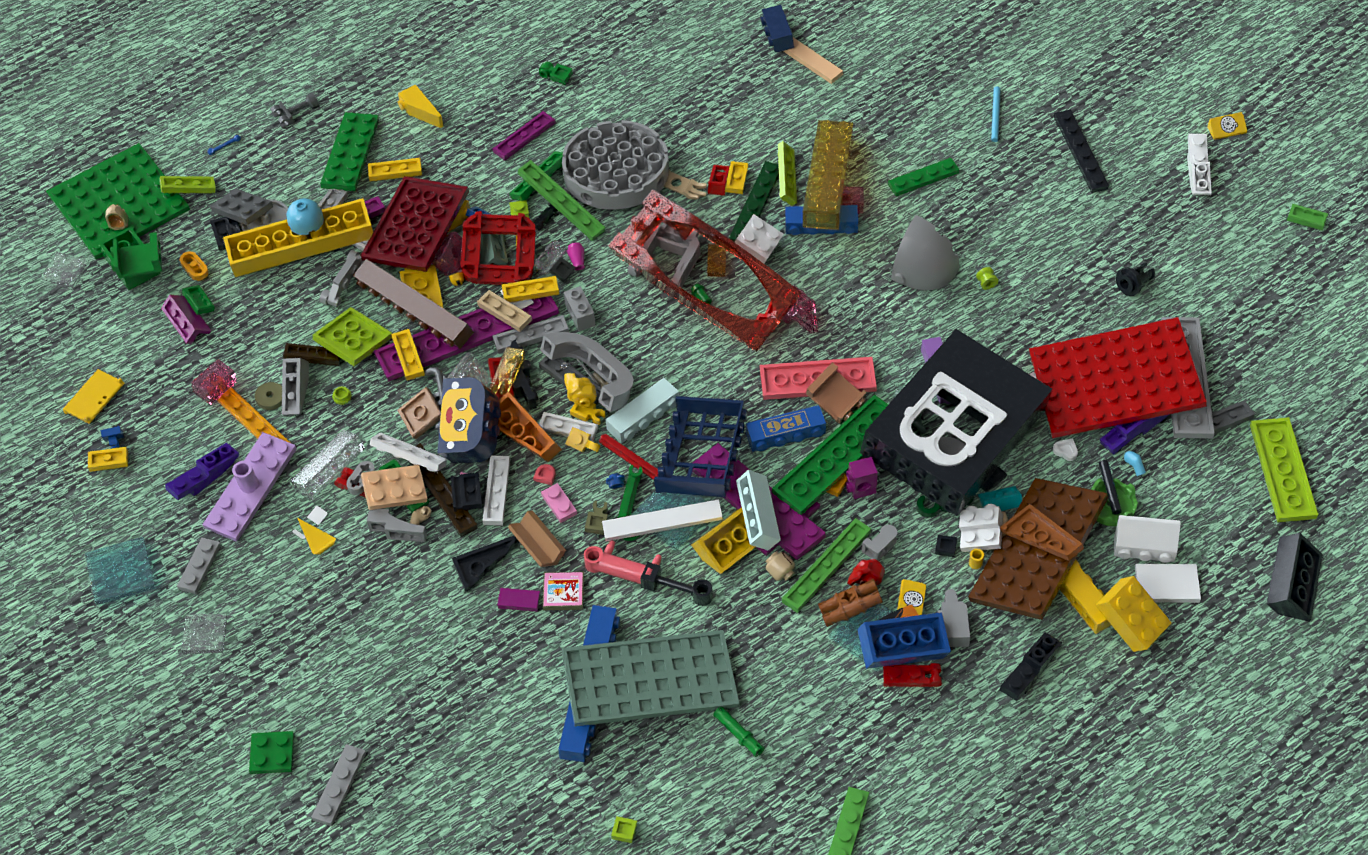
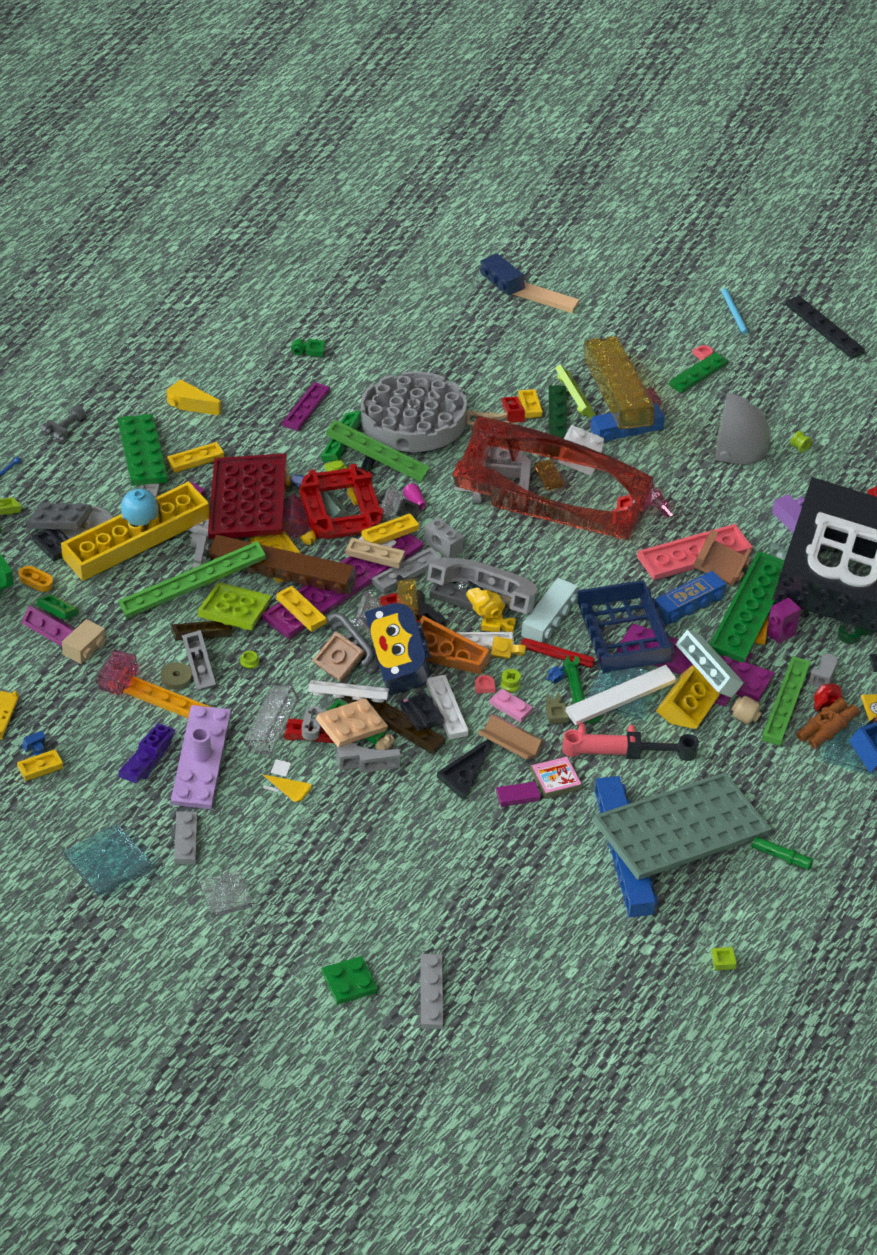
camera: 25 degrees left, 10 degrees down
(203, 341) = (83, 641): none -> tan brick
(324, 301) = (192, 579): none -> bright green plate
(568, 481) = (510, 680): none -> lime wheel
(939, 154) = (702, 351): none -> coral tile

